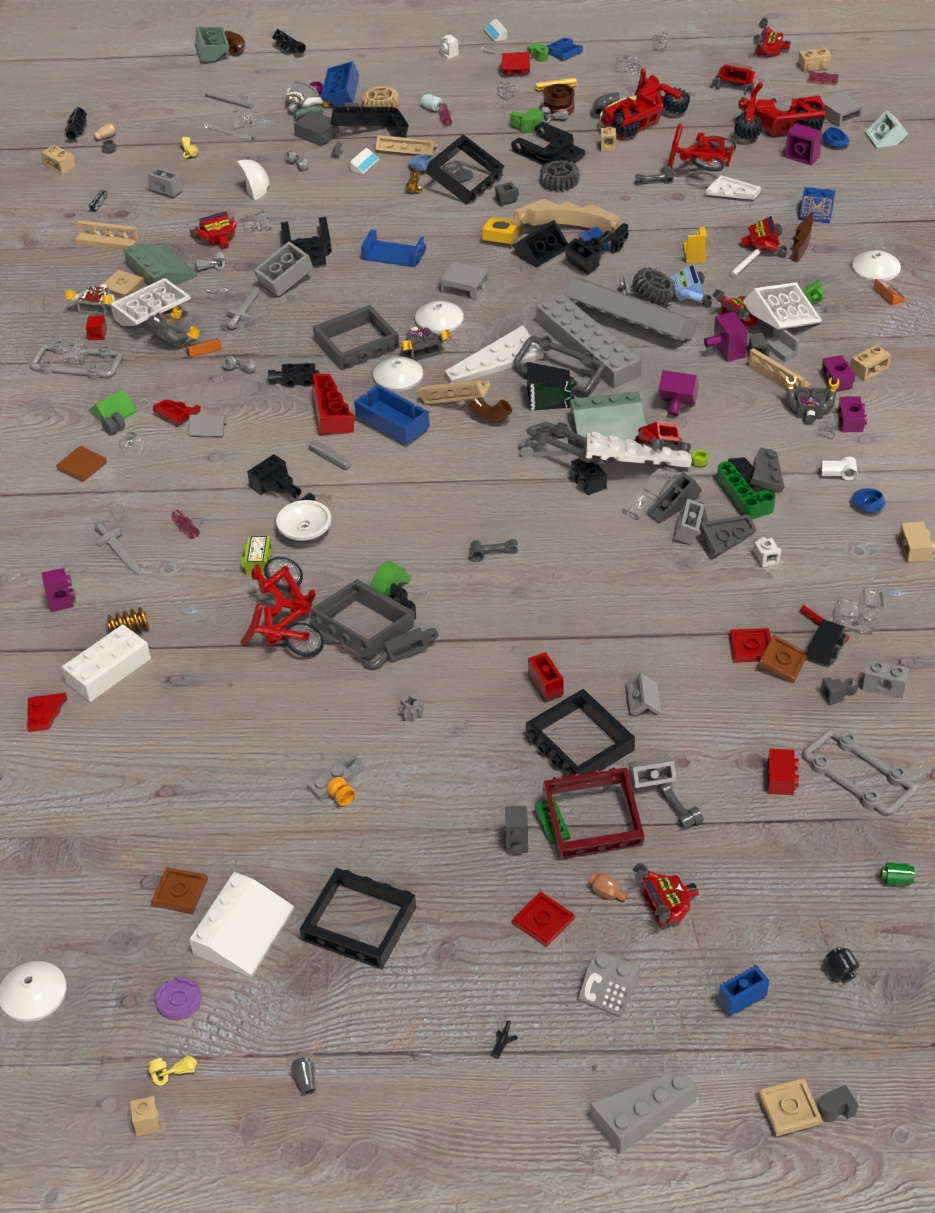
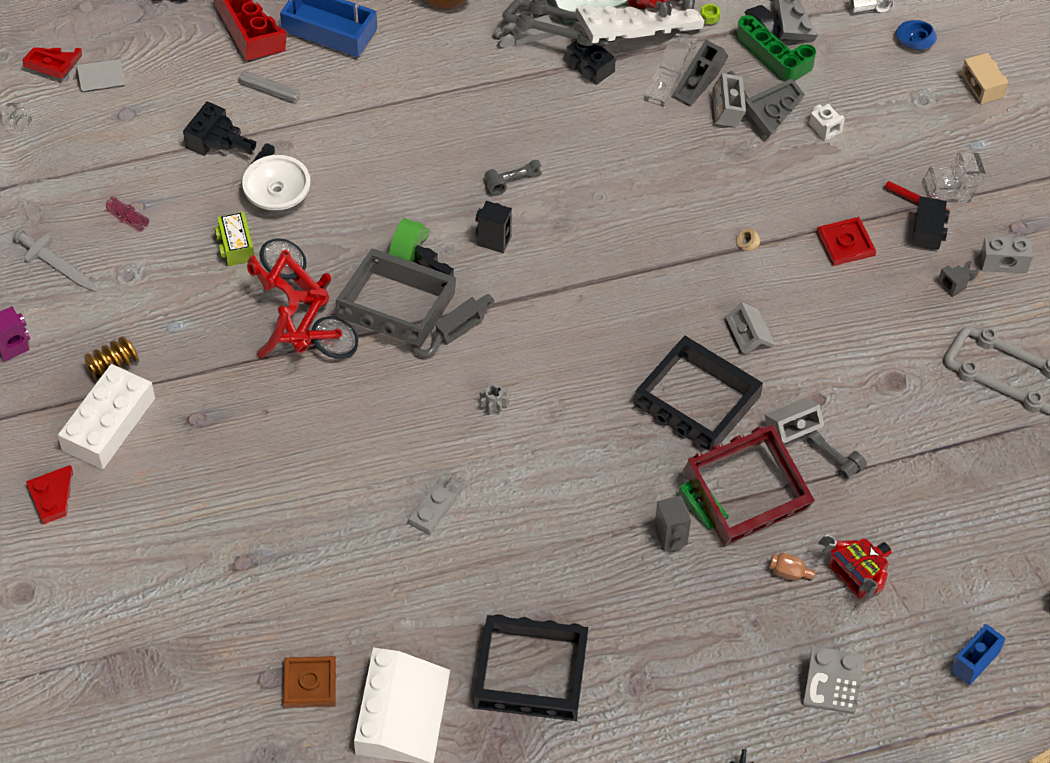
camera: 20 degrees left, 10 degrees up
(342, 793) = (452, 519): light orange wheel -> none
(460, 580) = (494, 226): none -> black brick
(543, 919) = (733, 620): red tile -> none
(545, 676) = (635, 328): red brick -> none
(672, 632) = (754, 242): none -> tan piece
(781, 771) = (931, 389): red brick -> none
(783, 659) = (887, 251): dark orange tile -> none

